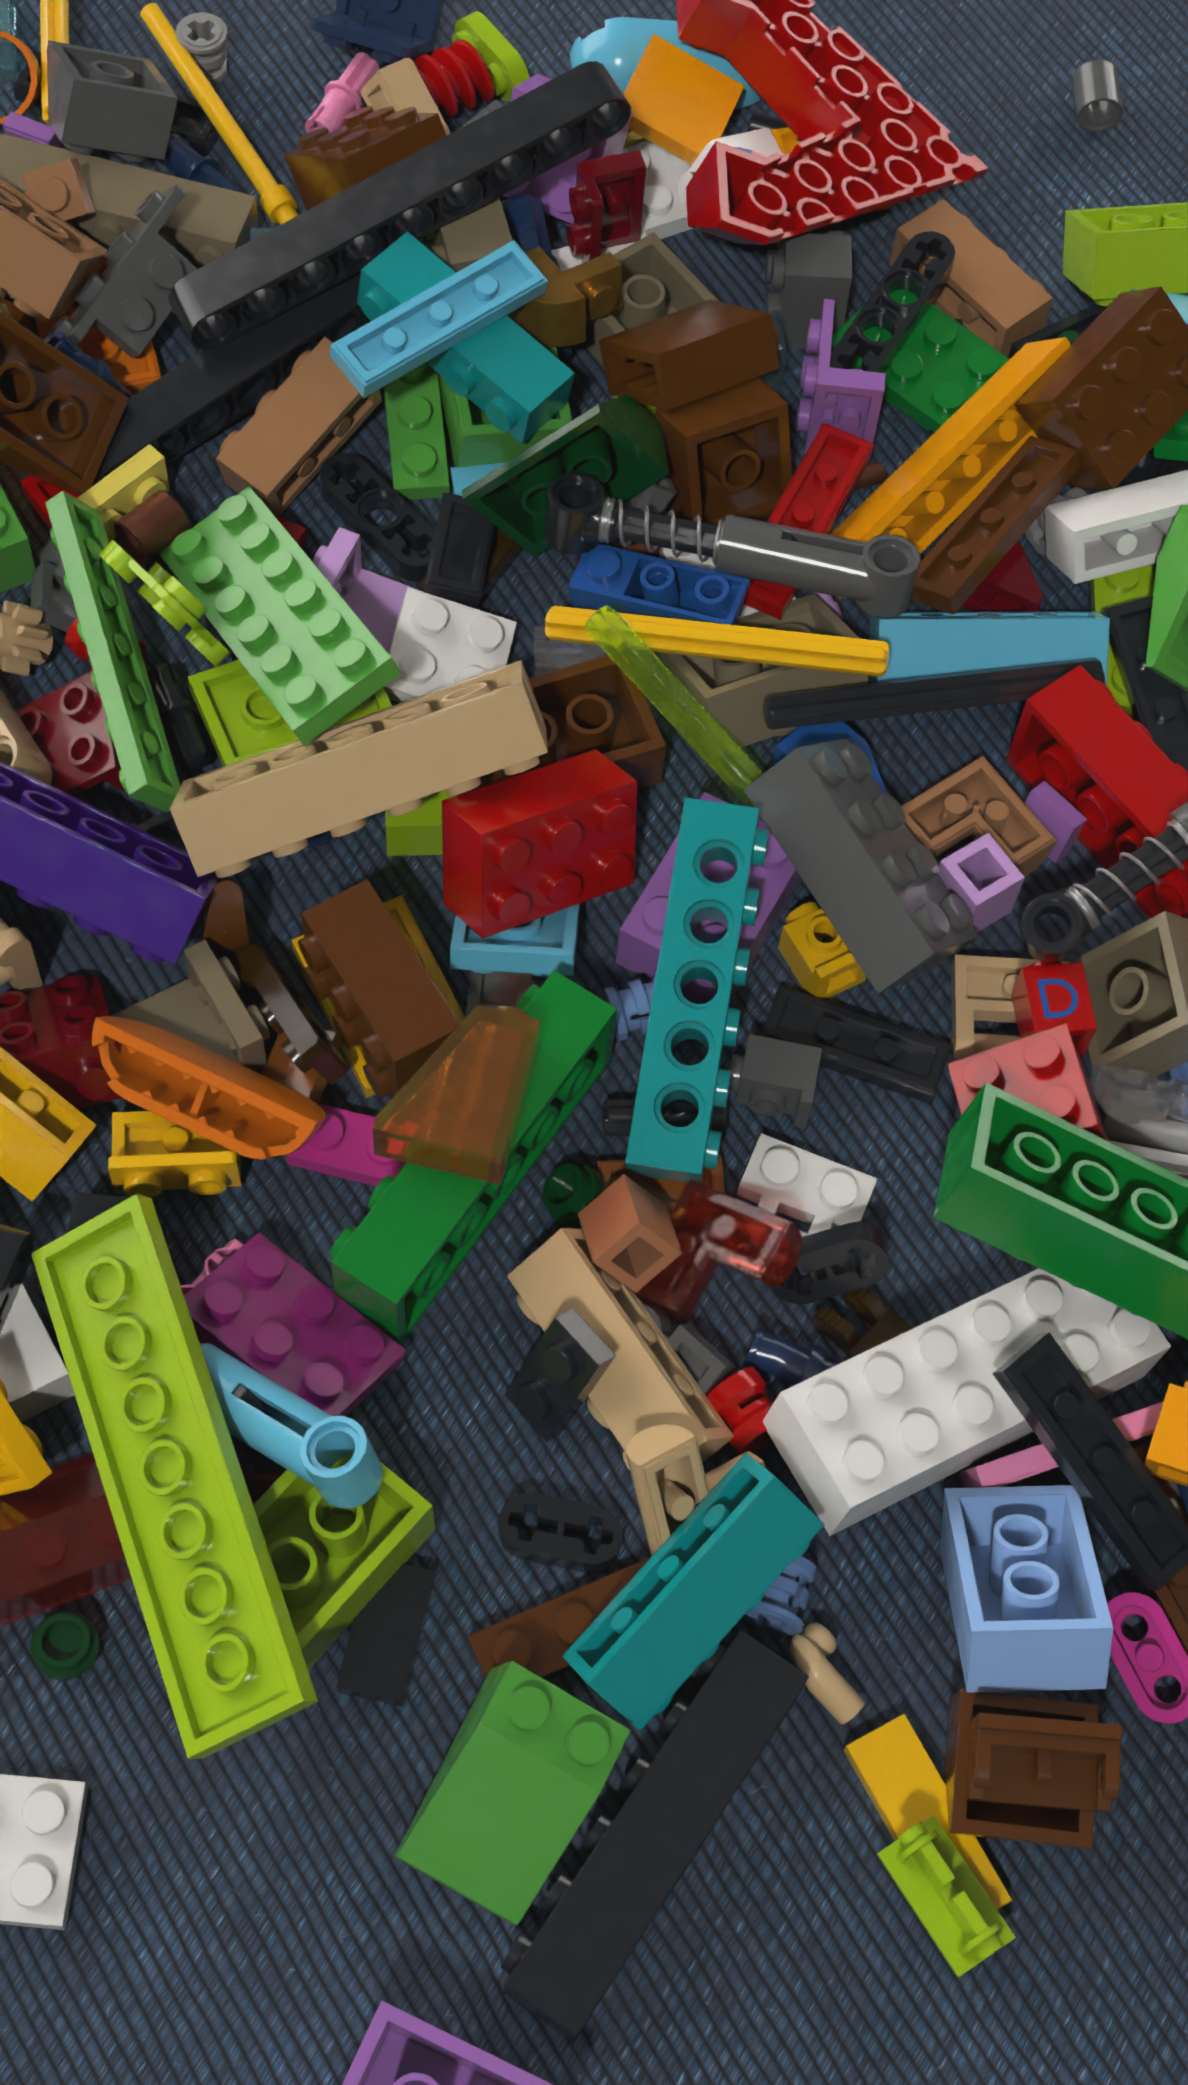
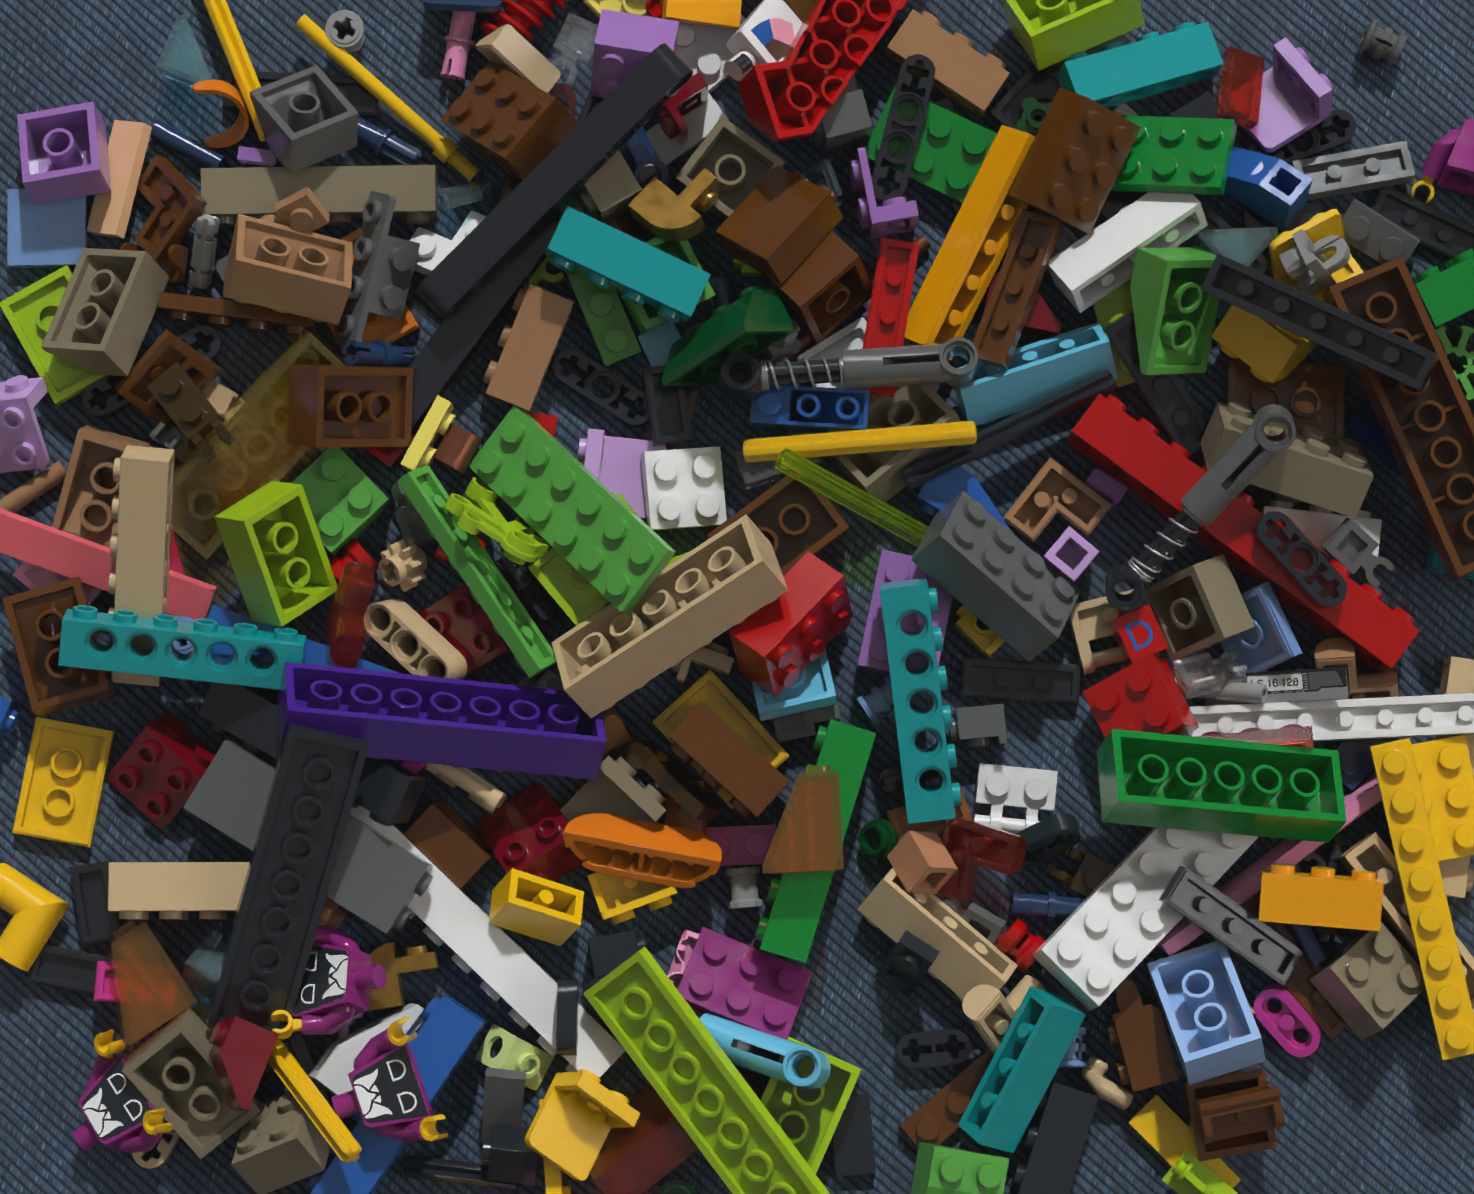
camera: 15 degrees left, 20 degrees up
(343, 1198) = (744, 887): none -> light grey bush
(398, 874) = (712, 657): none -> tan bracket
(438, 318) = (611, 270): medium azure tile -> none
(901, 1616) = (1140, 1040): none -> reddish brown hinge

